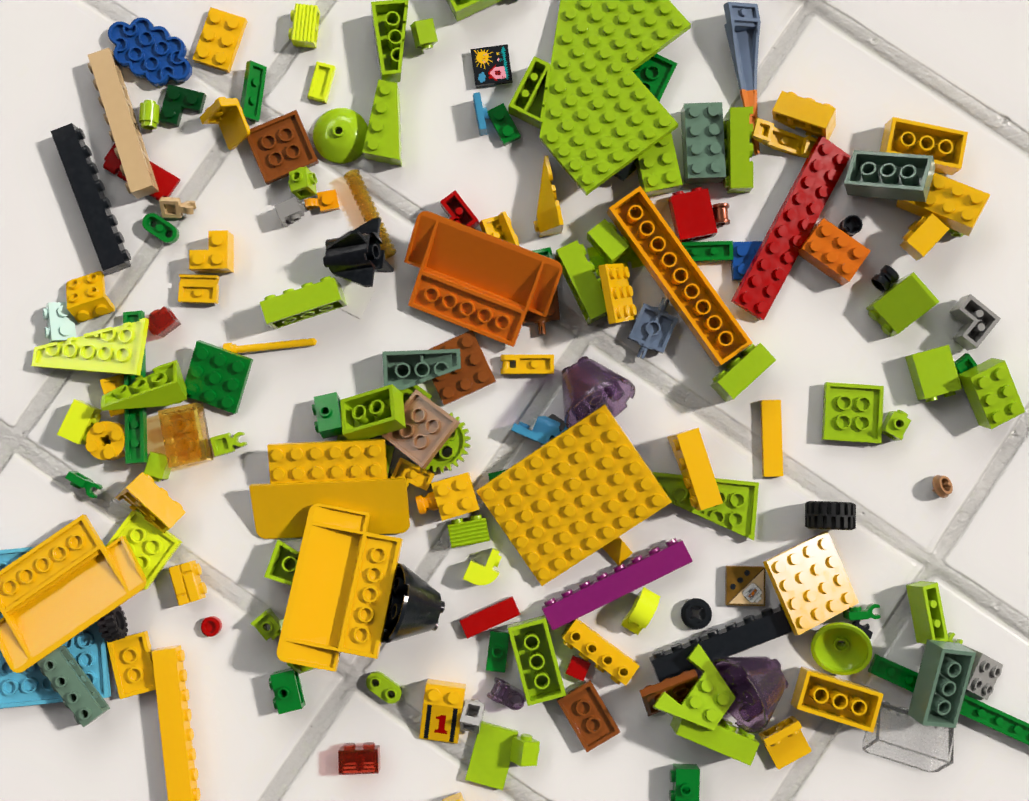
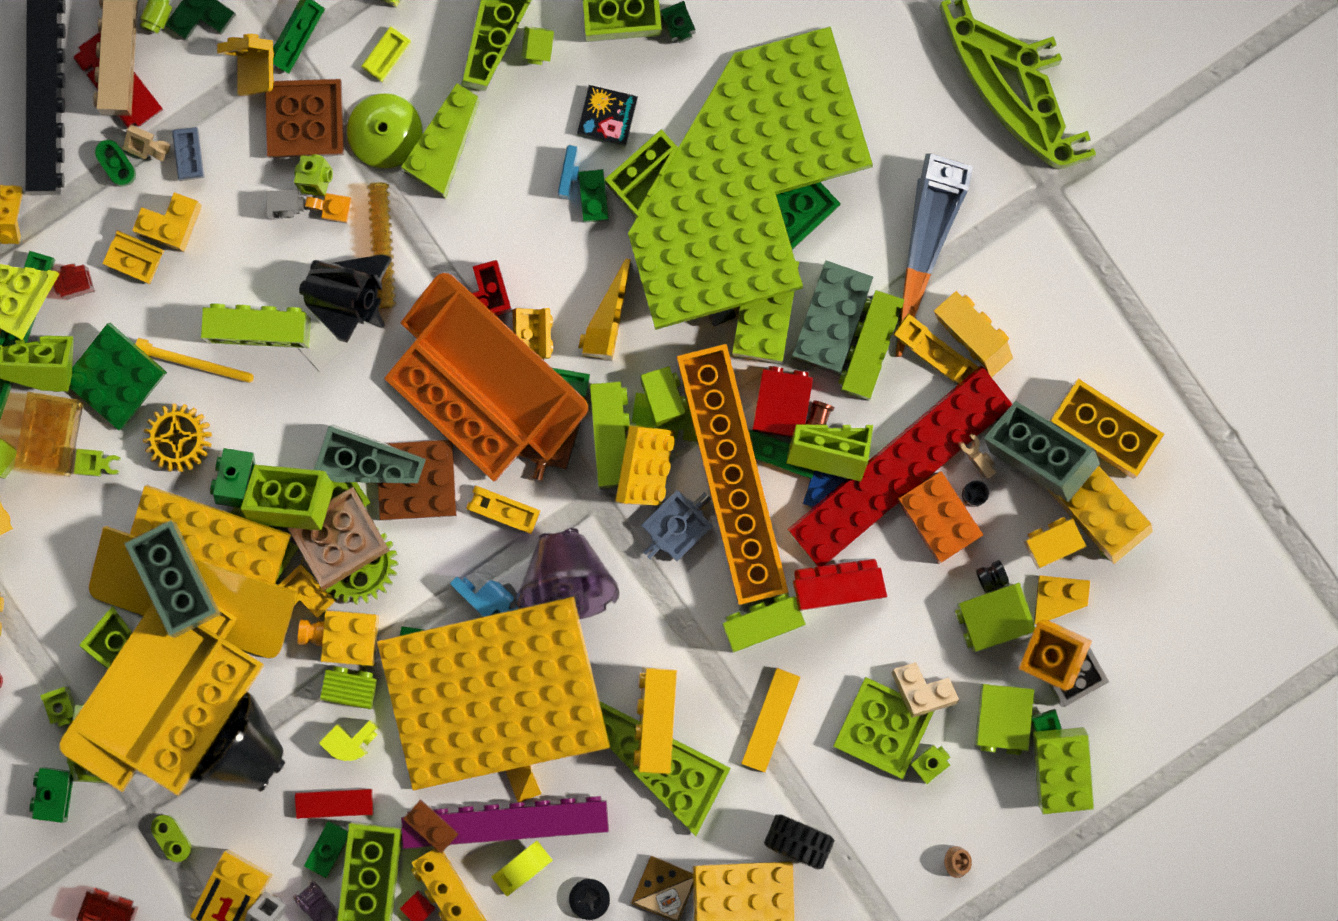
camera: 25 degrees right, 0 degrees up
(209, 202) = (188, 154): none -> sand blue plate
(263, 409) = (176, 426): none -> yellow gear
(312, 503) = (172, 579): none -> sand green brick
(566, 607) = (431, 826): none -> dark orange plate
(742, 233) = (831, 450): none -> lime wedge
(783, 324) = (838, 584): none -> red windscreen
(844, 202) = (981, 461): none -> tan plate
(867, 380) = (923, 697): none -> tan plate
(937, 273) = (1059, 597): none -> yellow wing
(960, 312) = (1055, 654): none -> light orange brick

